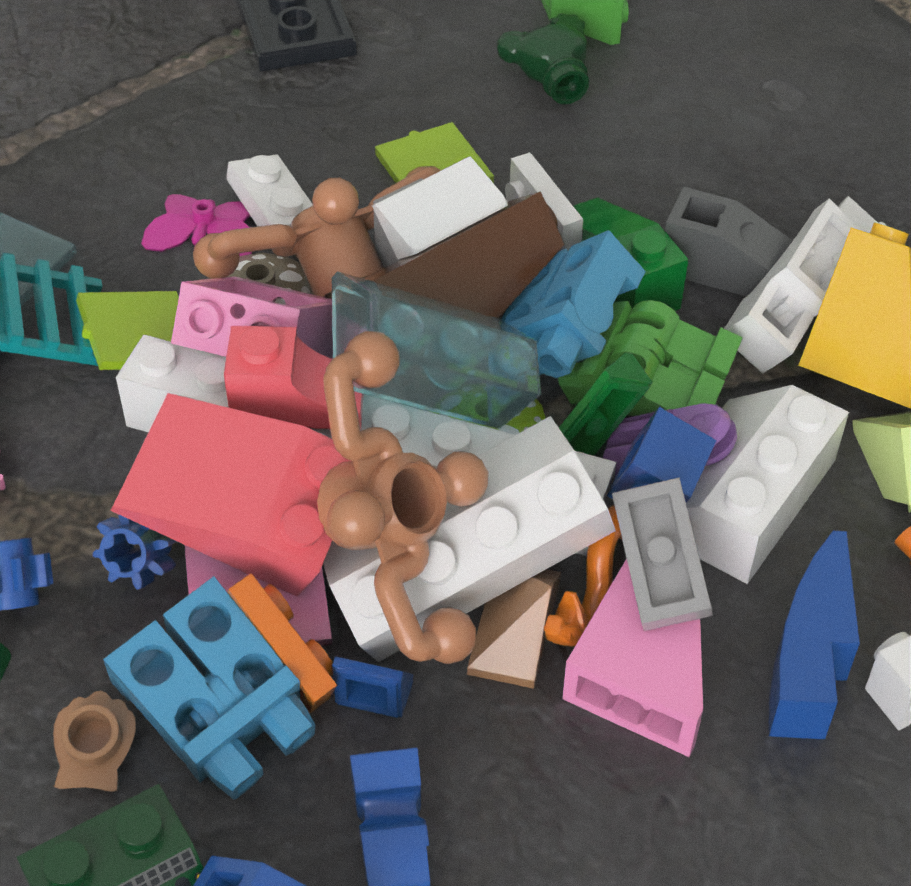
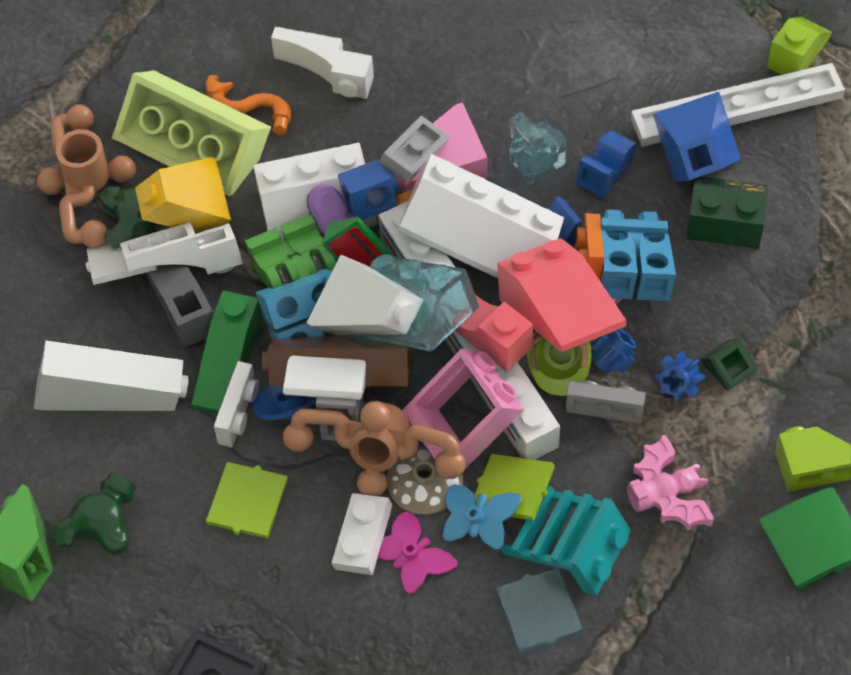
camera: 135 degrees left, 10 degrees up
(82, 486) = (605, 402): none -> light grey plate
(92, 742) = (695, 283): medium nougat animal -> none
(131, 280) = (478, 517): none -> dark azure piece
(393, 501) = (515, 214): nougat wheel -> none
(470, 279) = (363, 302): none -> white slope
(518, 744) = (535, 147): none -> clear light blue arch
(701, 131) = (107, 380): none -> white slope
(815, 645) = (372, 113): blue slope -> none

